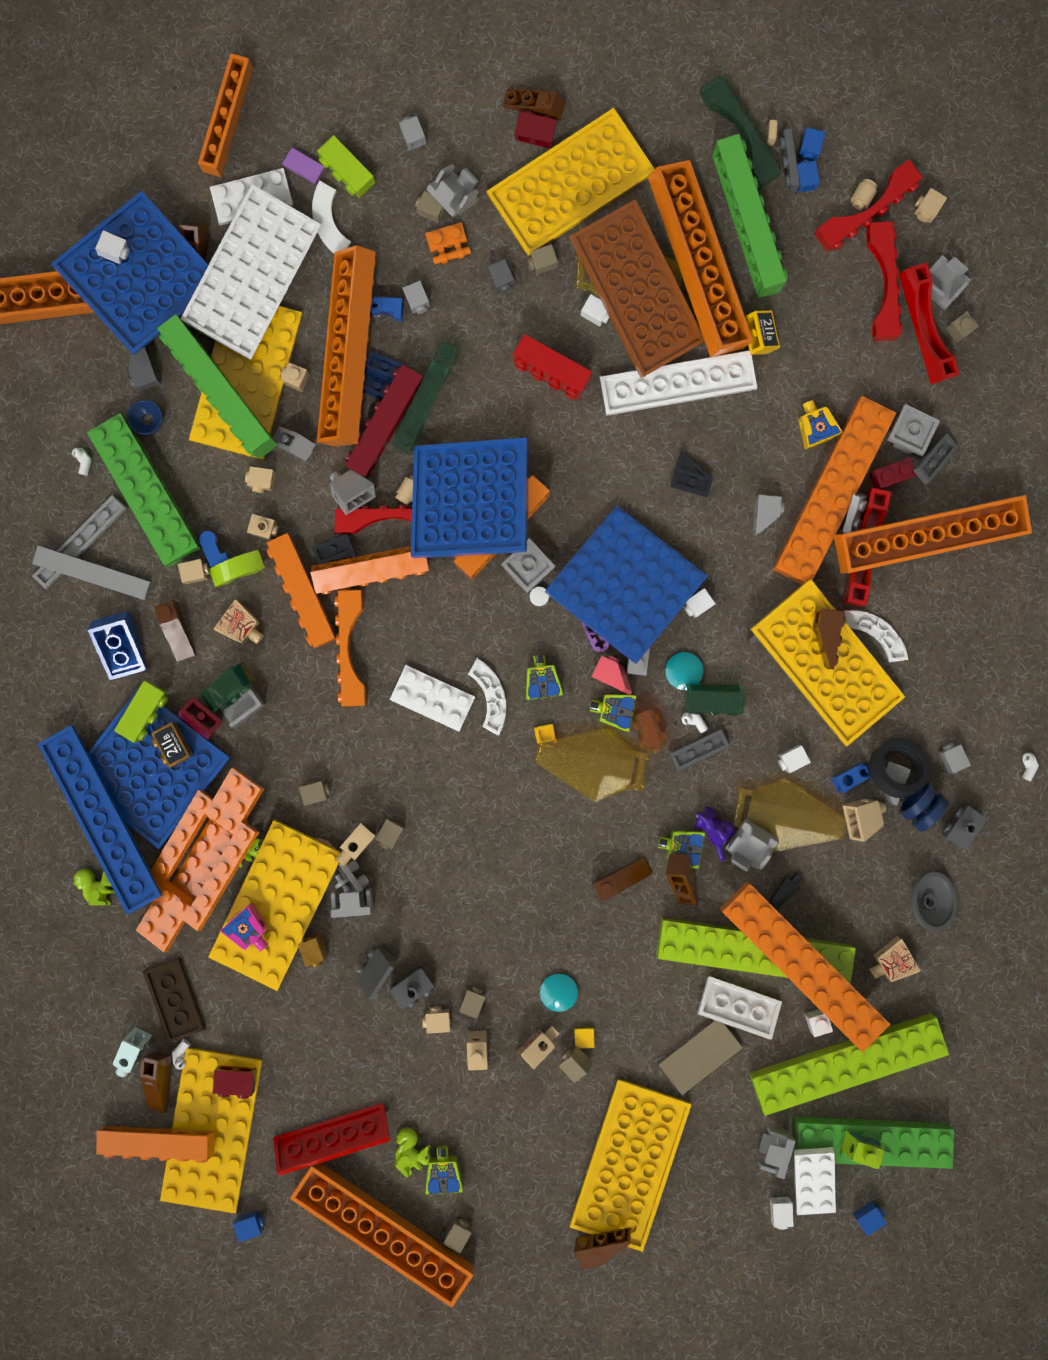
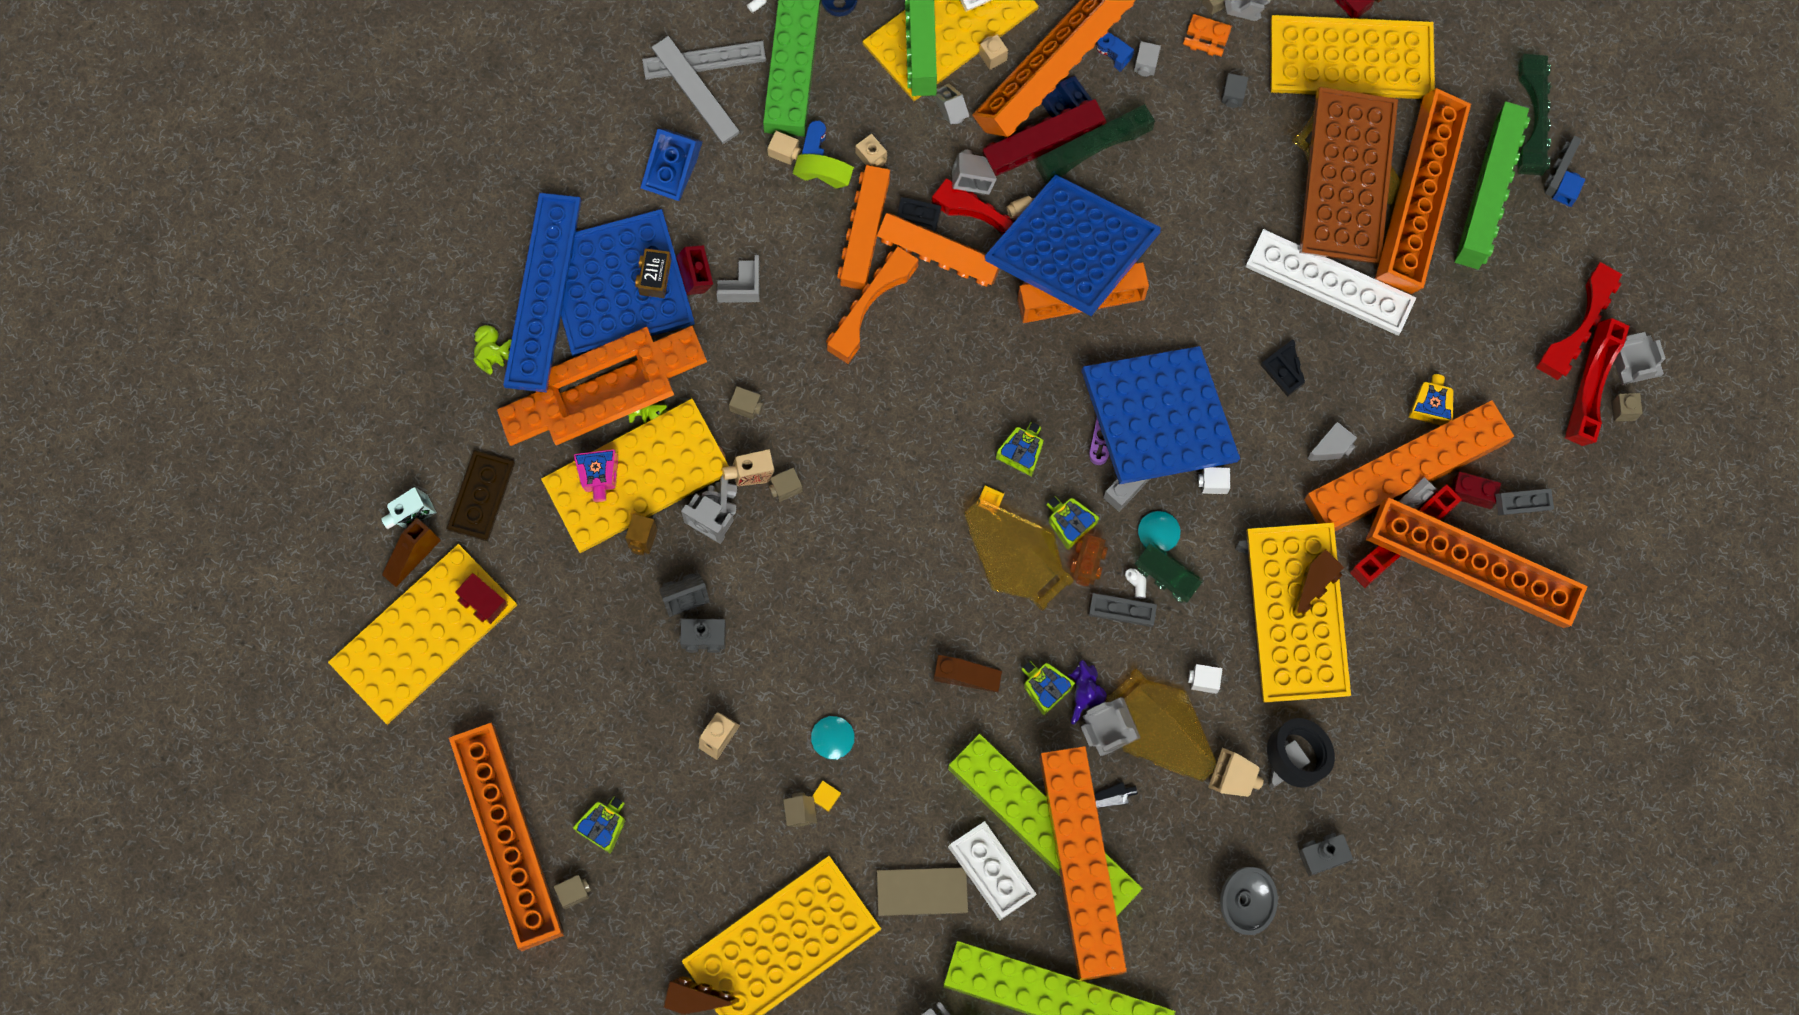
camera: 30 degrees right, 15 degrees down
(141, 712) = (649, 228): lime brick -> none
(155, 1143) = (368, 604): orange brick -> none
(175, 629) = (730, 184): slope -> none
(179, 1053) = (447, 545): white arm -> none
(229, 687) = (741, 258): clear green brick -> none
(239, 624) = (788, 217): tan torso -> none
(249, 1226) = (389, 742): blue brick -> none
(260, 479) = (900, 113): tan brick -> none
(331, 1139) = (526, 715): red plate -> none
(406, 1155) = (581, 783): lime animal -> none
(432, 698) = (912, 397): white plate -> none
(437, 1020) = (702, 680): tan brick -> none
(472, 1001) = (748, 687): dark tan brick -> none
(494, 696) = (969, 434): white tile -> none
(528, 567) = (1082, 341): light grey panel -> none
(532, 1053) = (768, 770): tan torso -> none
(538, 596) = (1072, 377): white tile -> none
(543, 259) = (1281, 101): dark tan brick -> none
(551, 367) = (1225, 191): red brick -> none
(595, 311) = (1296, 172): white brick -> none
(612, 674) = (1090, 485): coral slope -> none
(681, 878) = (1023, 709): reddish brown slope -> none
(763, 332) = (1437, 289): brick -> none
(771, 132) = (1561, 133): tan tile -> none
(811, 144) = (1592, 165): blue brick -> none
(818, 1023) = (1057, 938): white brick -> none
(837, 229) = (1566, 250): red arch -> none
(850, 777) = (1248, 733): blue leg -> none
(864, 194) = (1611, 237): tan brick -> none
(880, 631) = (1368, 621): white tile -> none
(894, 961) = (1170, 934): tan torso -> none
(912, 431) = (1519, 464): light grey panel -> none
(924, 807) = (1299, 804): dark blue wheel -> none
(929, 205) = (1666, 286): tan brick -> none
(954, 757) = (1359, 784): light grey brick -> none
(1031, 766) = (1430, 844): white arm -> none

